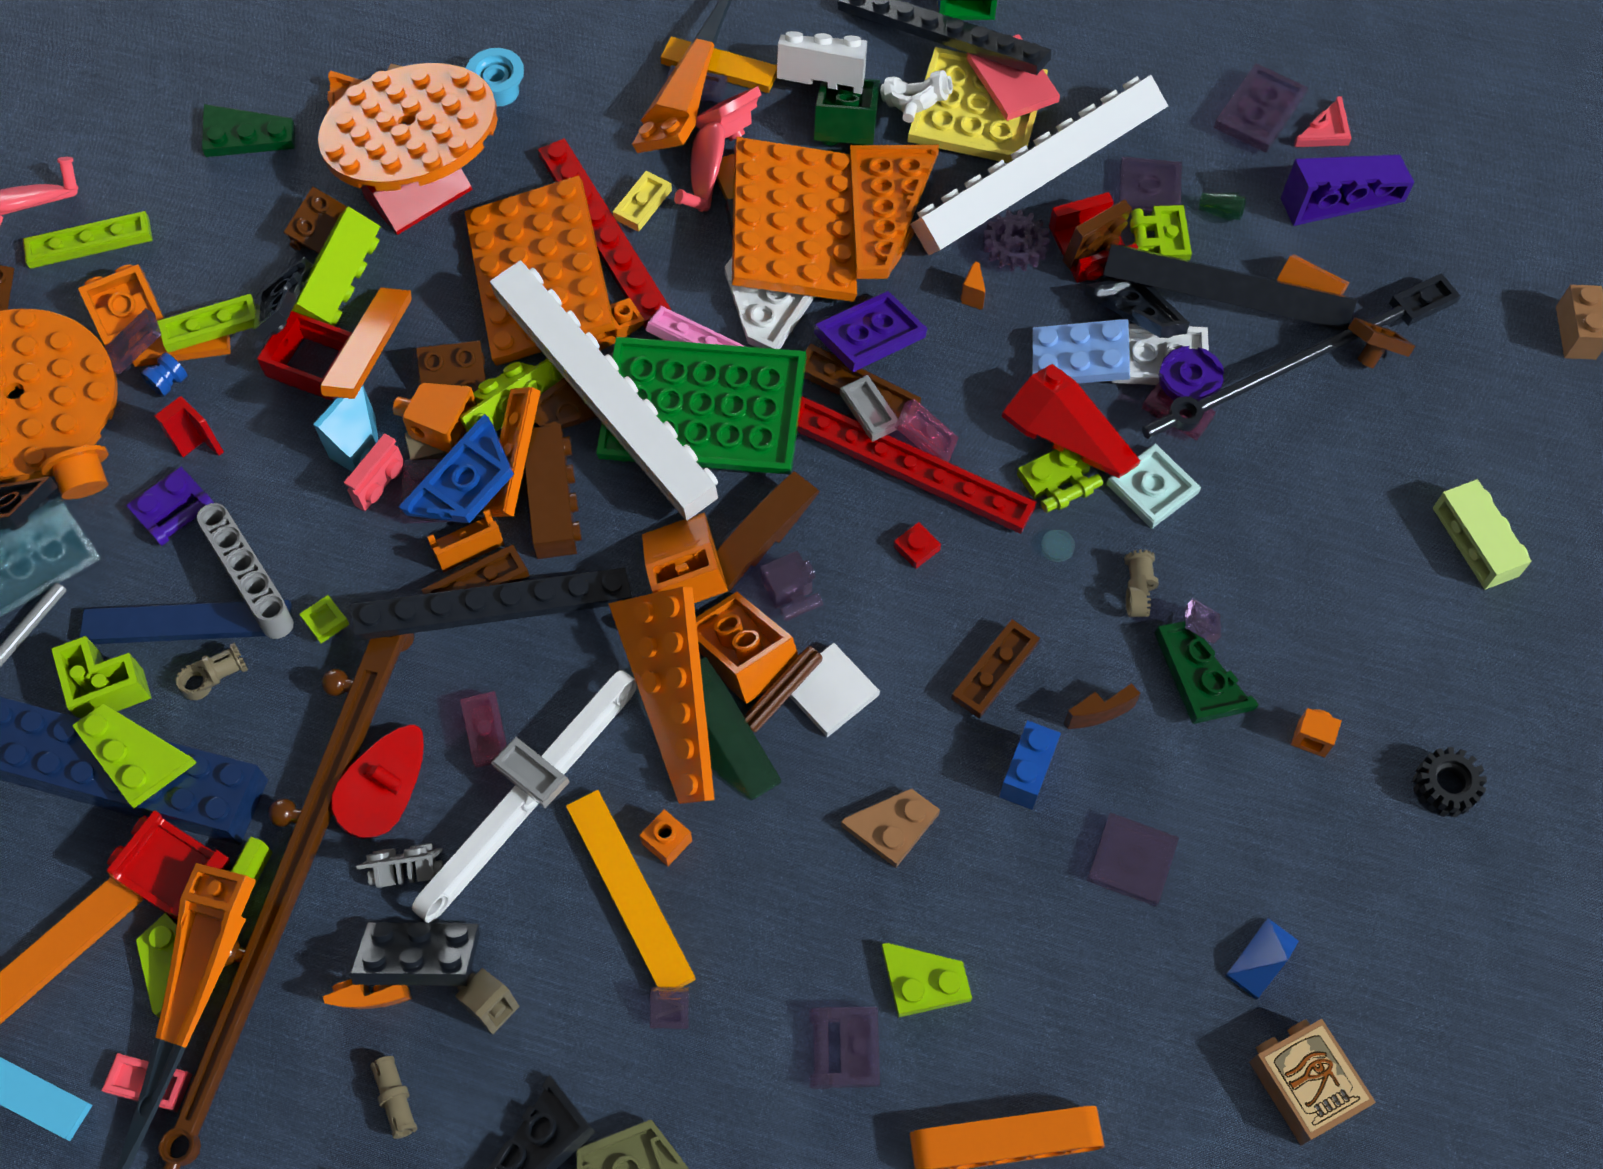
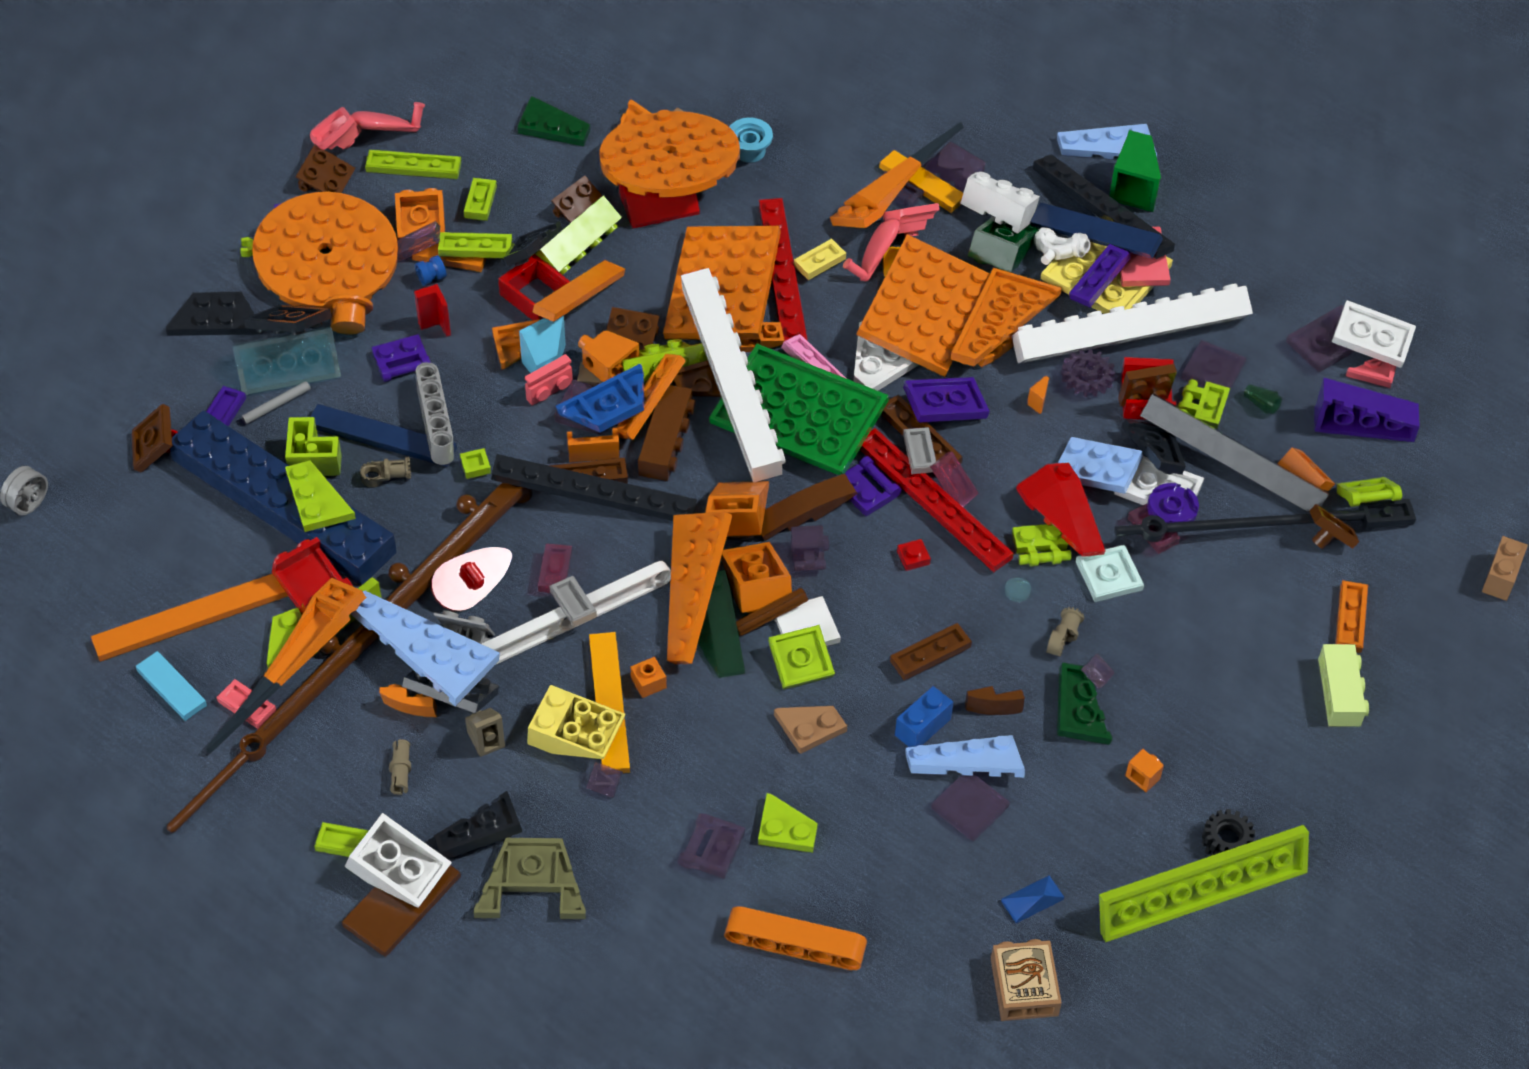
camera: 20 degrees right, 10 degrees down
(191, 258) = (480, 199): none -> lime plate
(301, 436) = (508, 342): none -> orange wing
(373, 917) = (428, 648): none -> light blue wing
(602, 948) = (573, 725): none -> light yellow slope
(753, 33) = (955, 165): none -> clear purple piece
(832, 488) = (868, 497): none -> dark purple plate
(844, 736) = (801, 657): none -> lime tile
(955, 60) = (1097, 229): none -> dark blue tile
(980, 116) = (1099, 275): none -> dark purple plate
(1116, 789) = (979, 755): none -> light blue wing
(1311, 87) = (1373, 334): none -> white plate
(1395, 279) = (1369, 491): none -> lime plate
(1444, 441) = (1351, 614): none -> orange tile
(1458, 862) = (1203, 883): none -> lime plate

